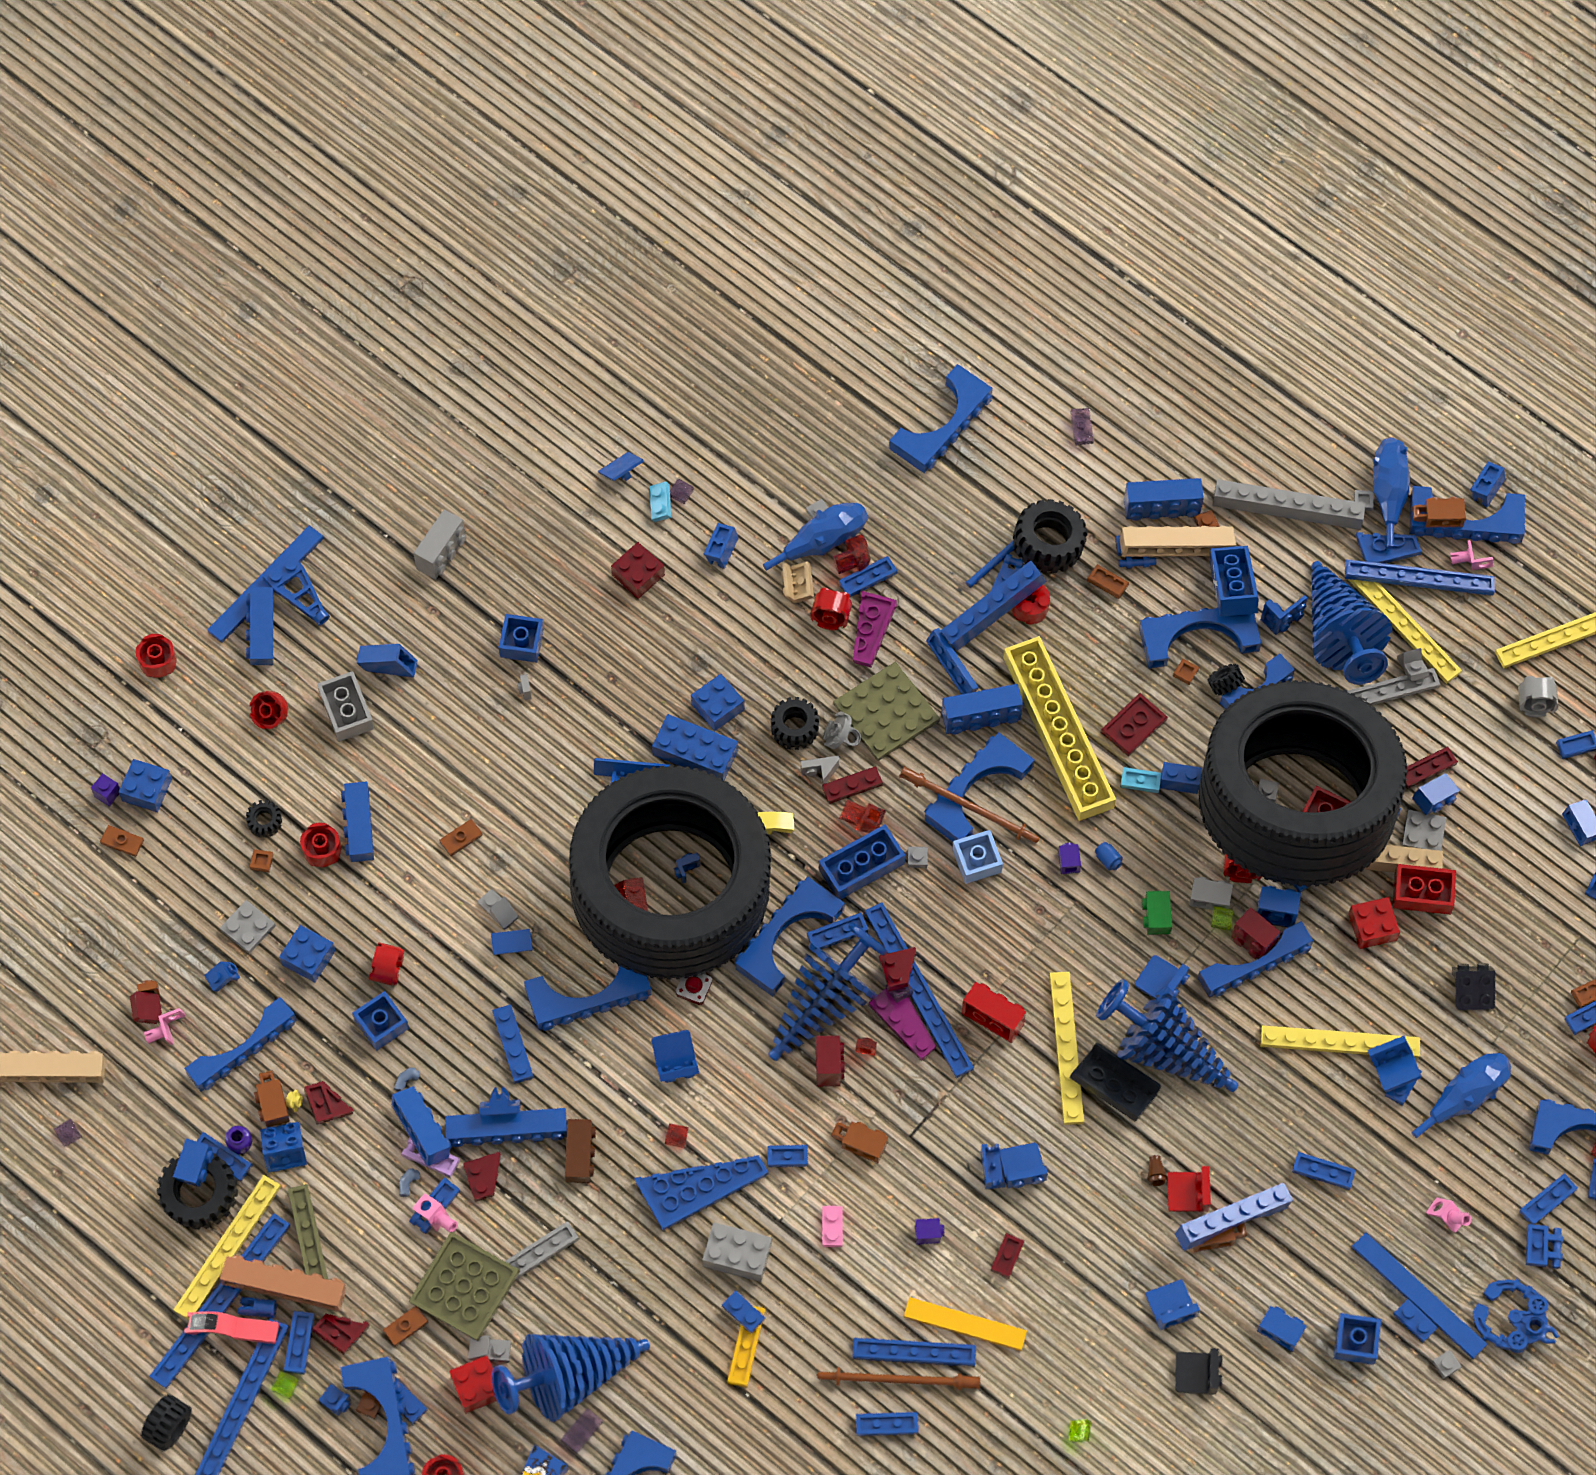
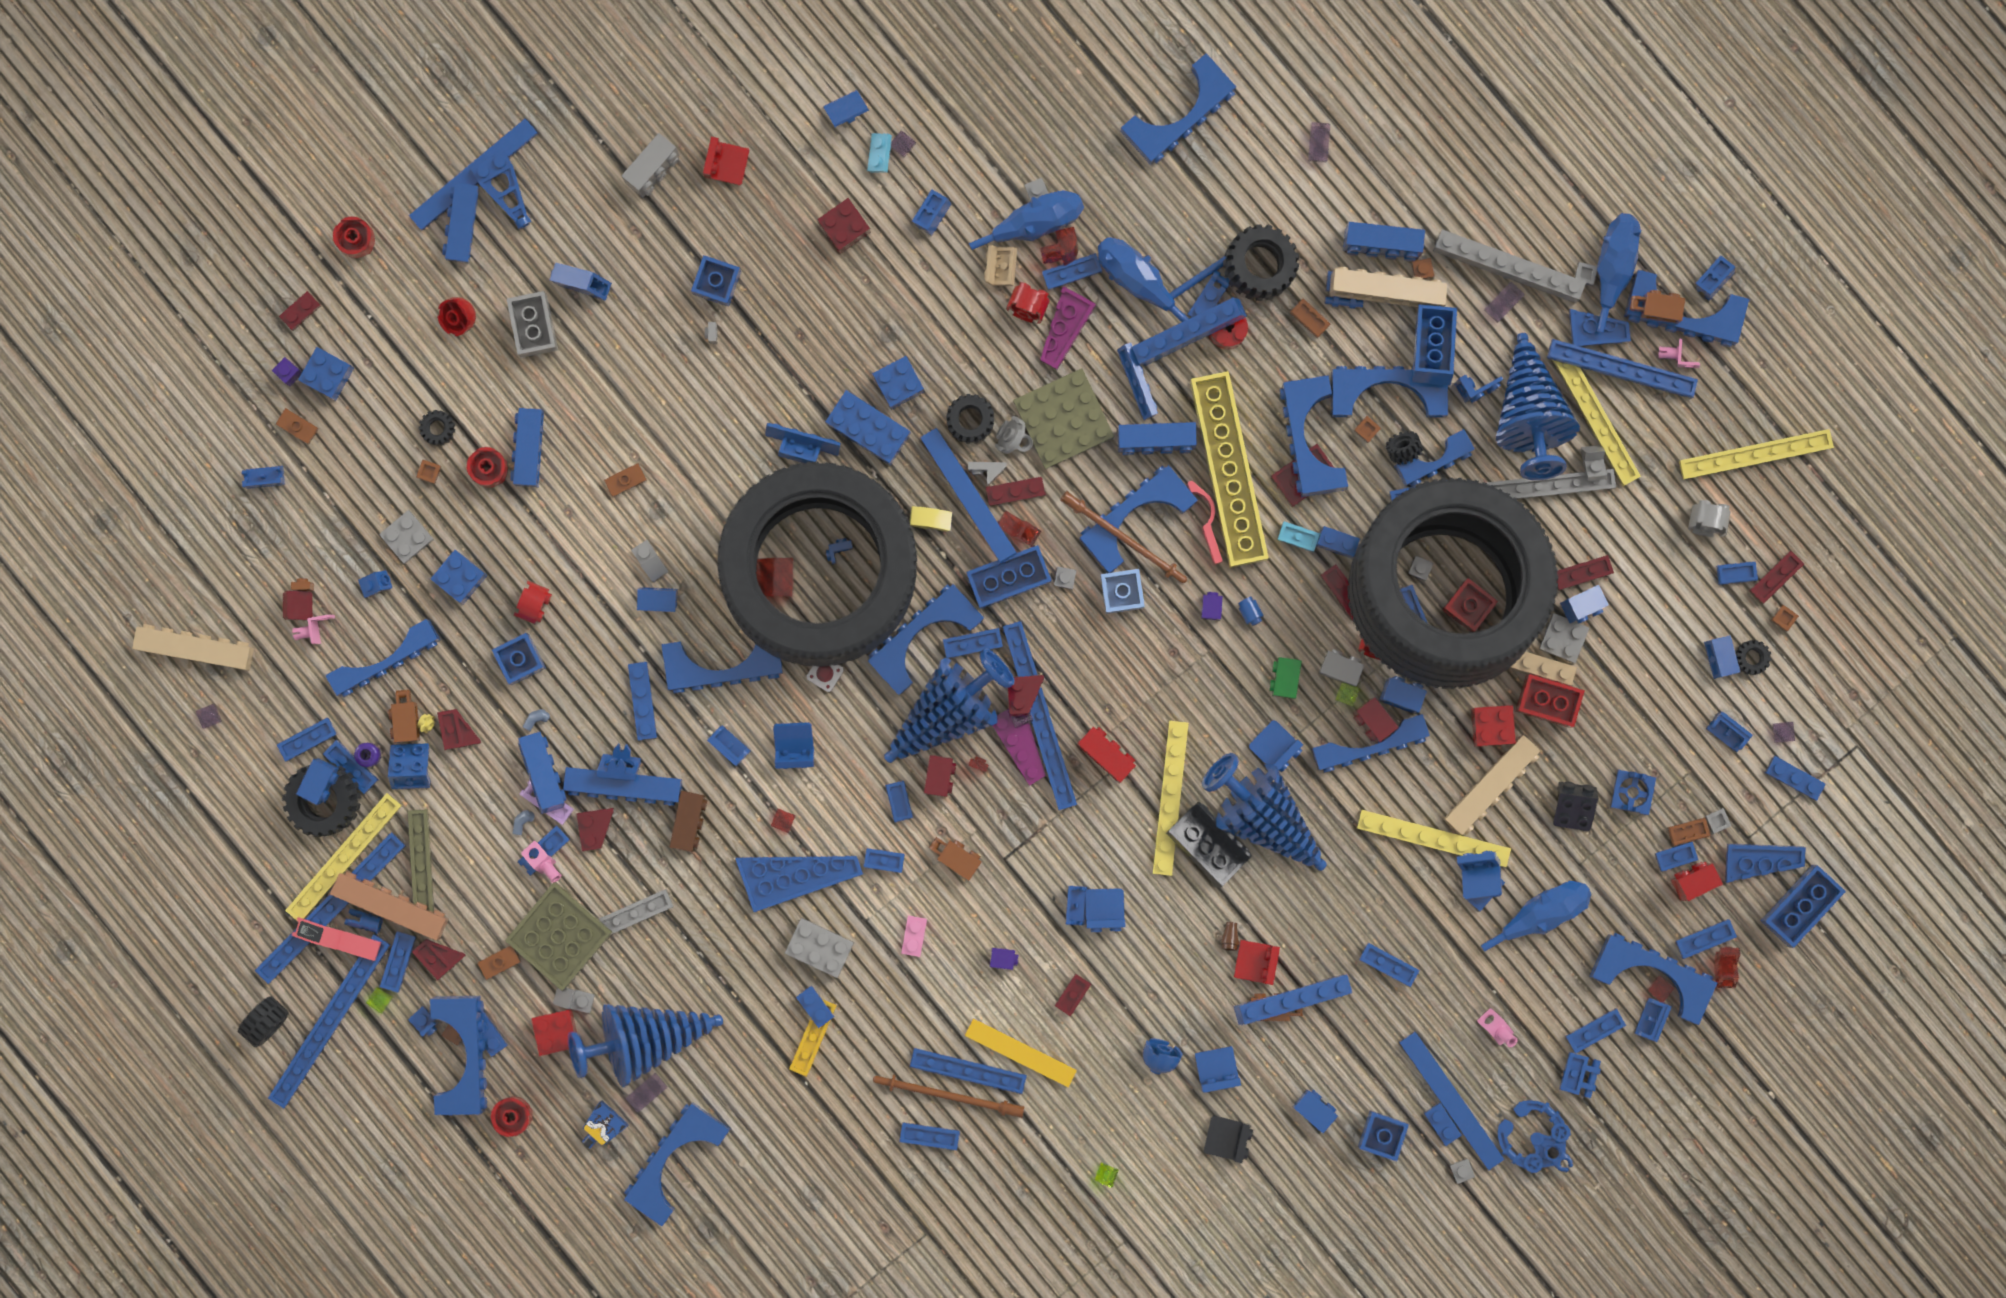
camera: 10 degrees right, 20 degrees up
(94, 894) = (263, 477): none -> blue hinge
(110, 734) = (300, 311): none -> dark red plate
(173, 1137) = (307, 739): none -> blue plate
(512, 533) = (725, 162): none -> red bracket
(608, 1072) = (729, 745): none -> blue hinge
(792, 1097) = (899, 801): none -> blue tile
(807, 792) = (968, 495): none -> blue tile
(930, 566) = (1136, 274): none -> blue piece
(1049, 787) = (1207, 530): none -> coral piece
(1110, 1300) = (1161, 1057): none -> blue cylinder
(1142, 718) = (1313, 475): none -> blue arch
(1192, 820) = (1338, 585): none -> dark red plate
(1291, 537) = (1504, 302): none -> clear purple plate
(1385, 980) = (1491, 785): none -> tan brick
(1527, 977) = (1649, 781): none -> blue piece

